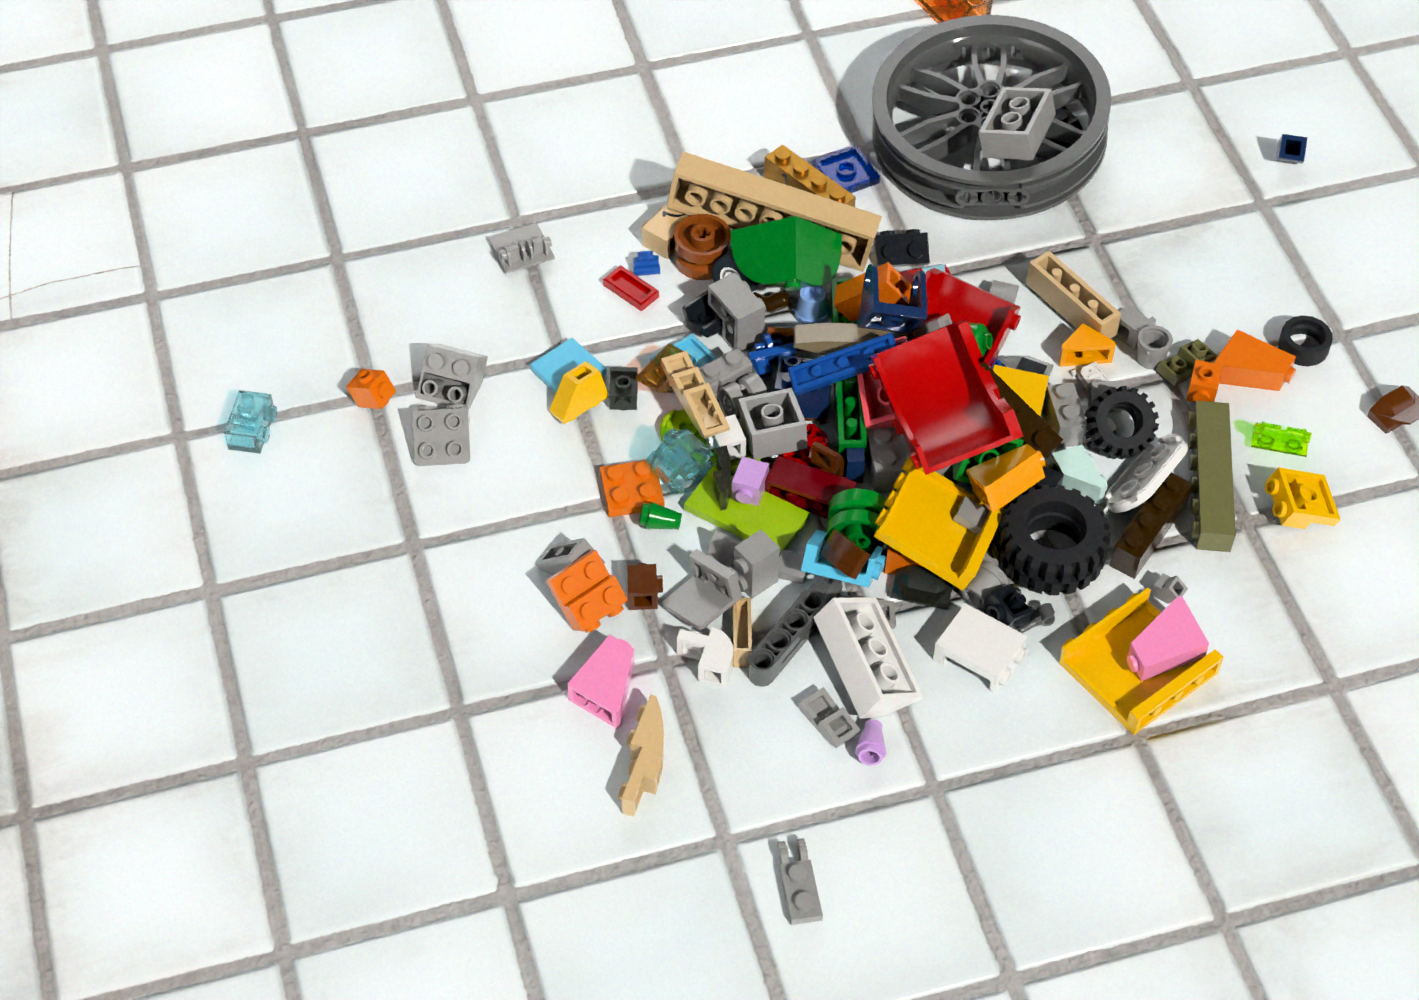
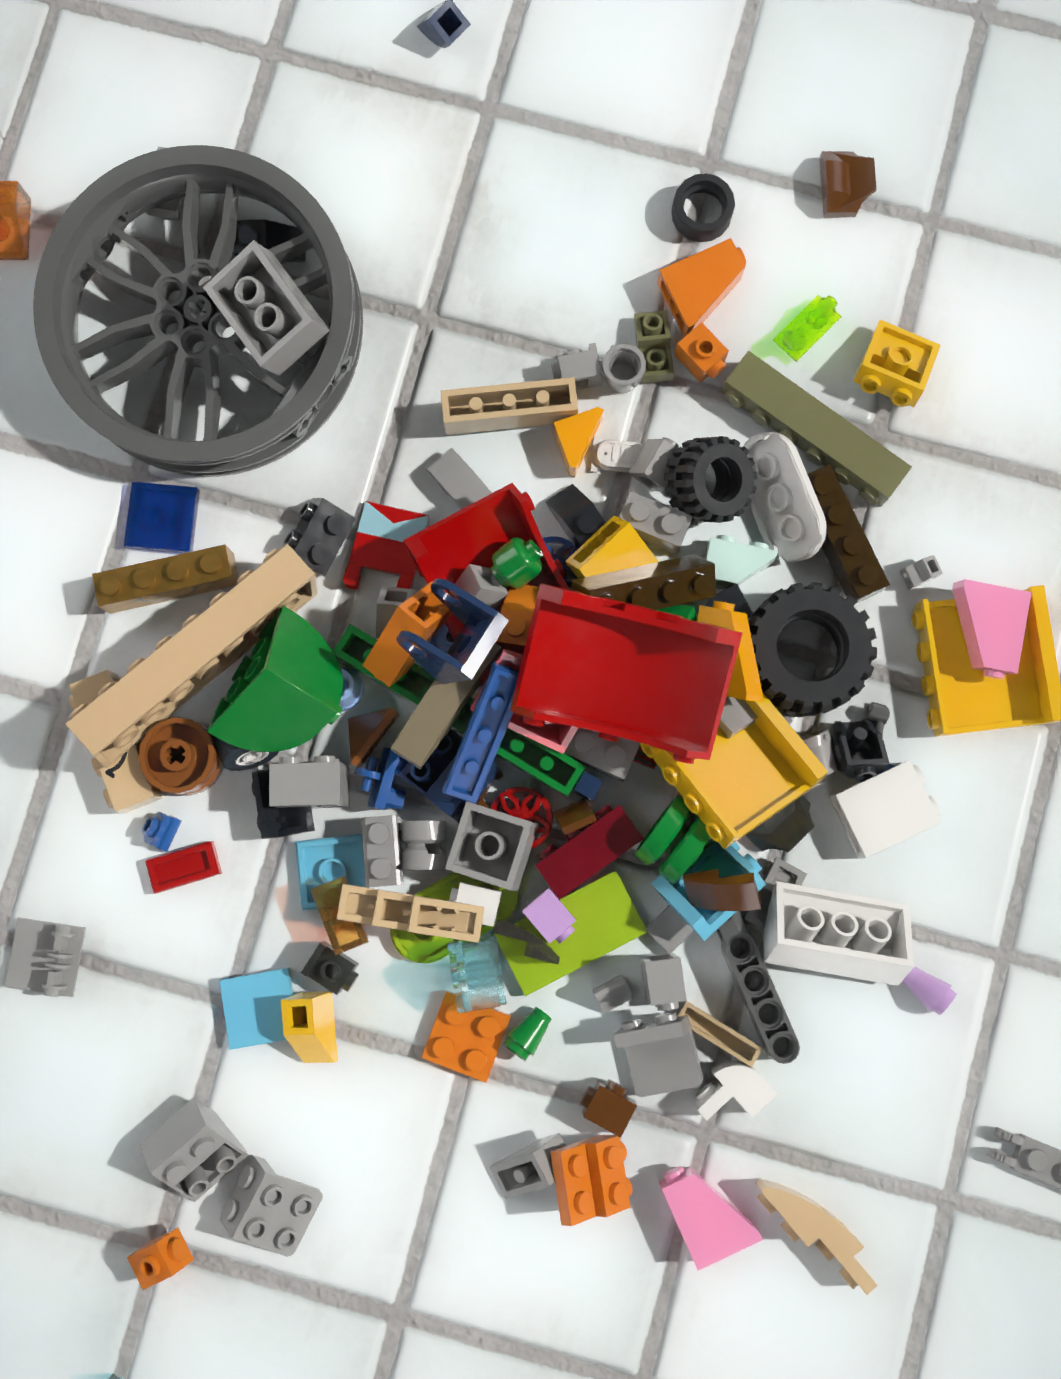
camera: 55 degrees left, 30 degrees up
(828, 719) = (874, 1011): light grey slope -> none

